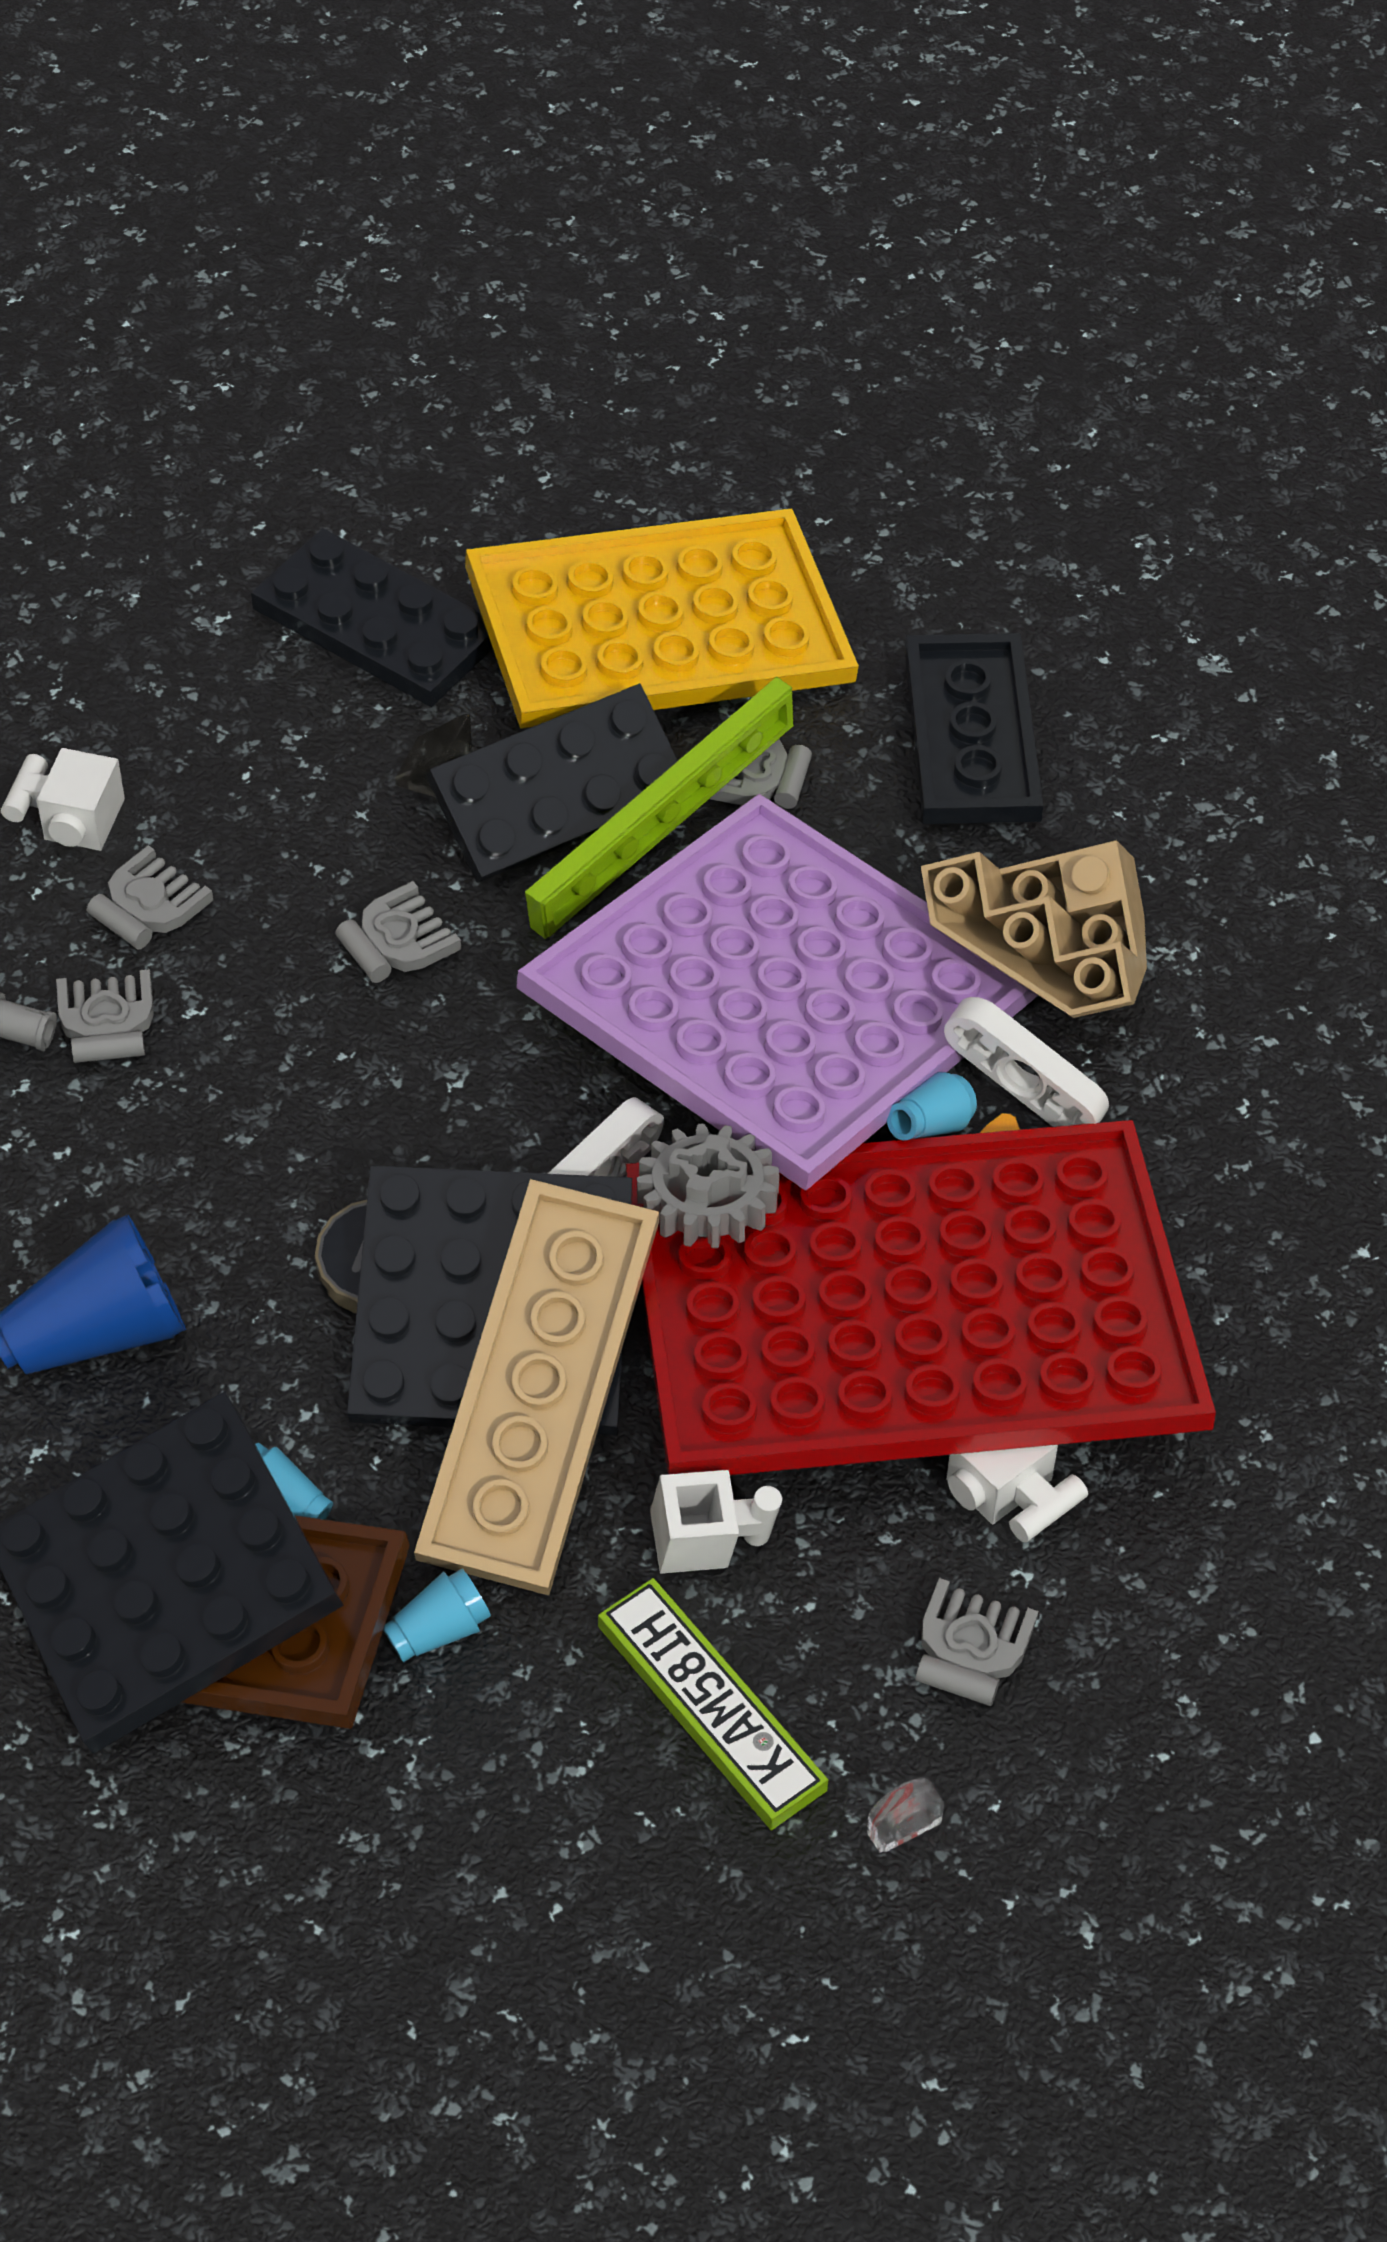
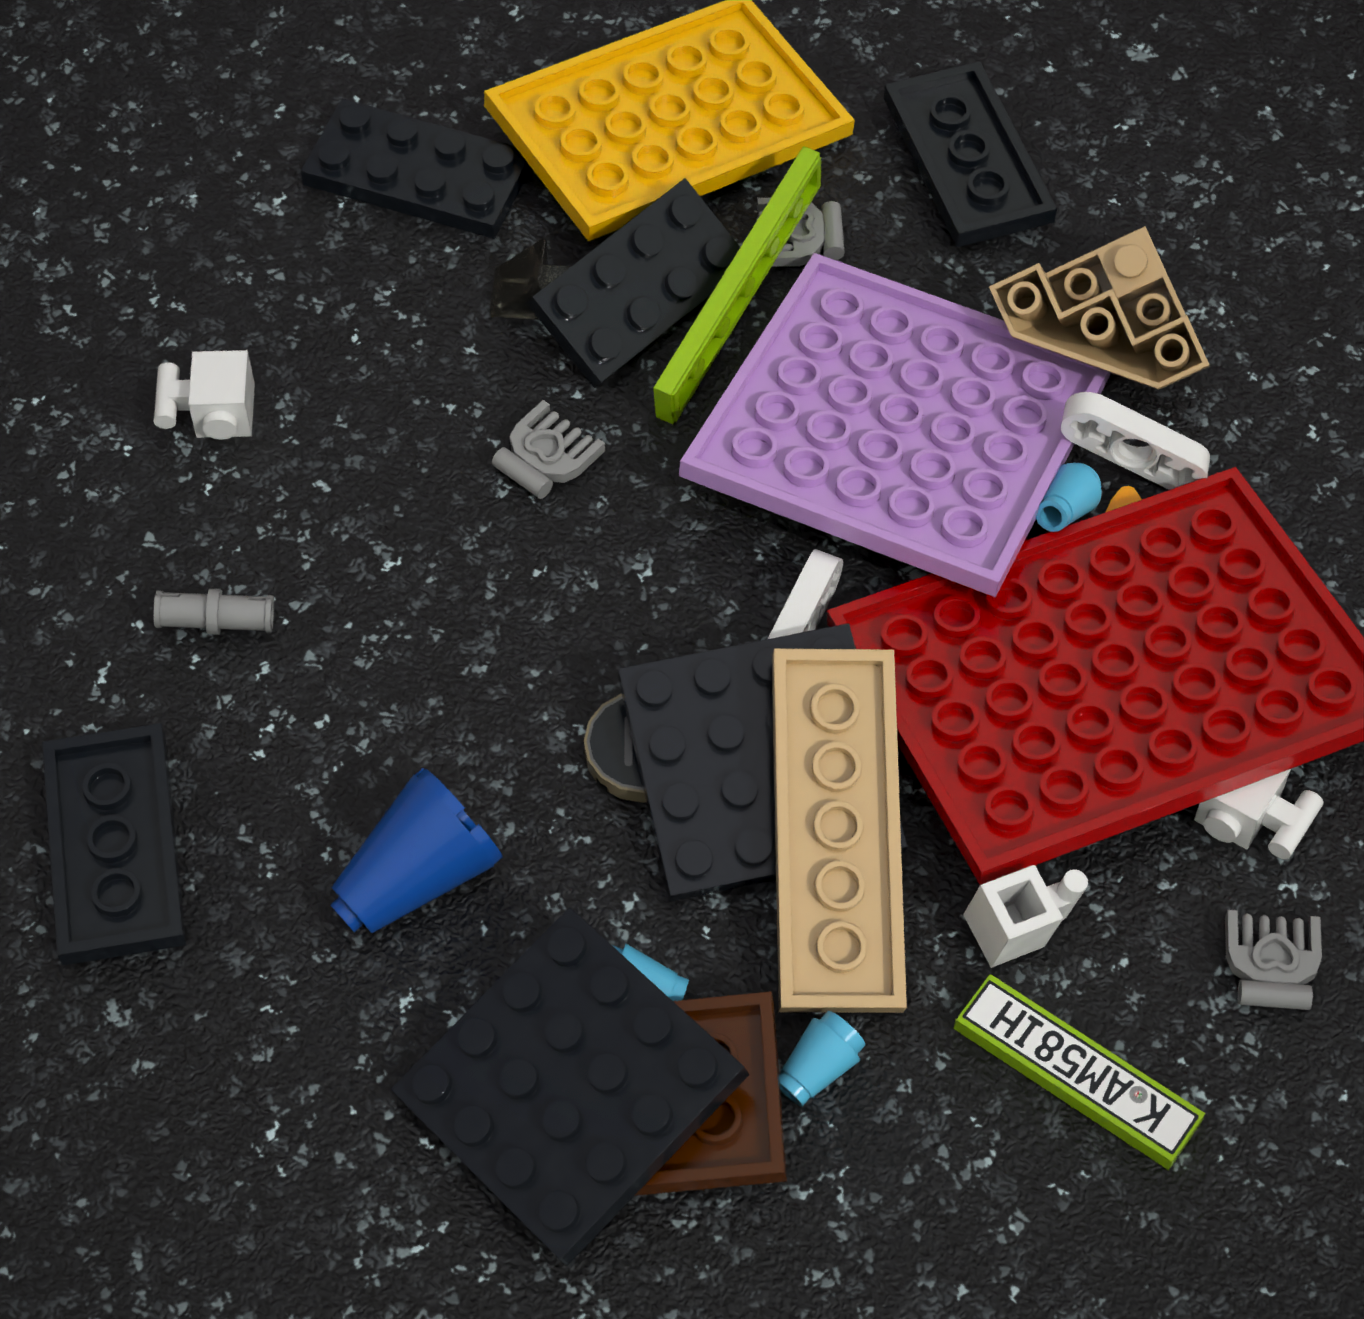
camera: 15 degrees left, 5 degrees up
(106, 1022) = (320, 593): light grey piece -> none
(142, 902) = (307, 477): light grey piece -> none
(708, 1185) = (916, 613): light grey gear -> none
(904, 1814) = (1280, 1127): clear tile -> none

